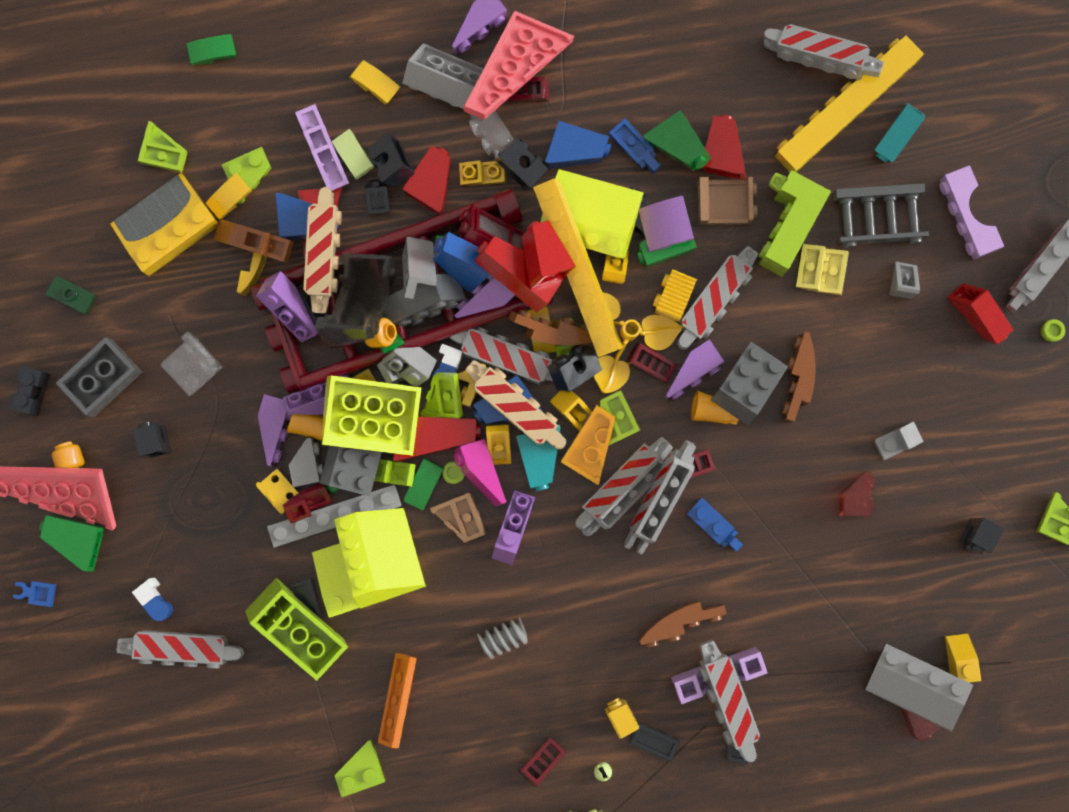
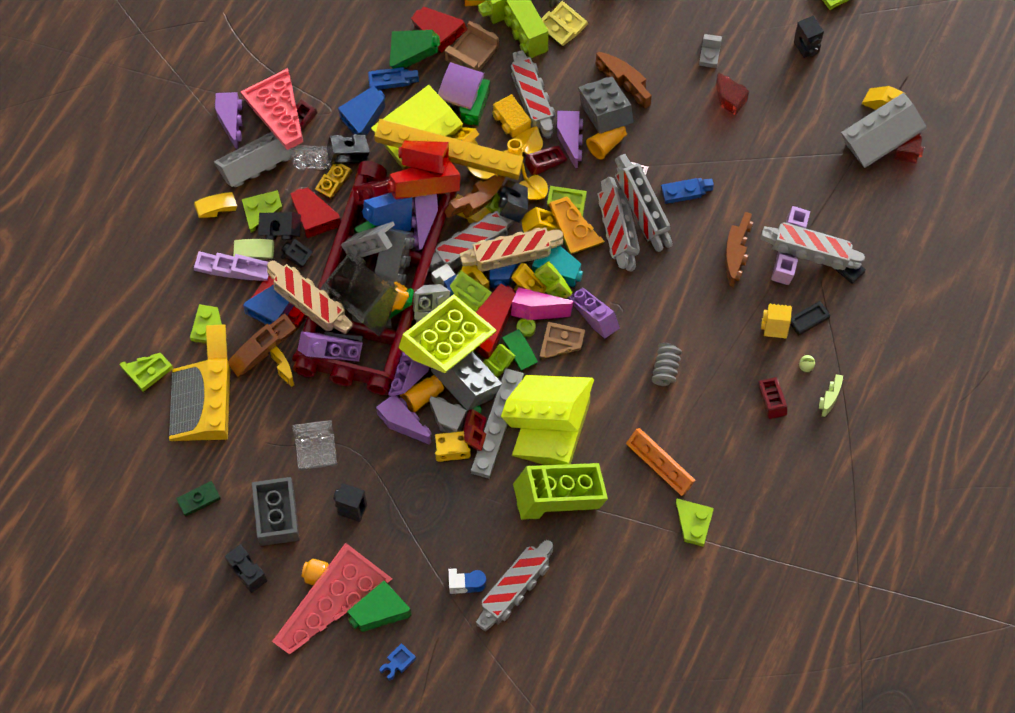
camera: 55 degrees left, 20 degrees down
(211, 48) = (102, 294): green slope -> none
(404, 126) = (258, 204): none -> lime wing
(514, 472) = (553, 281): none -> lime slope

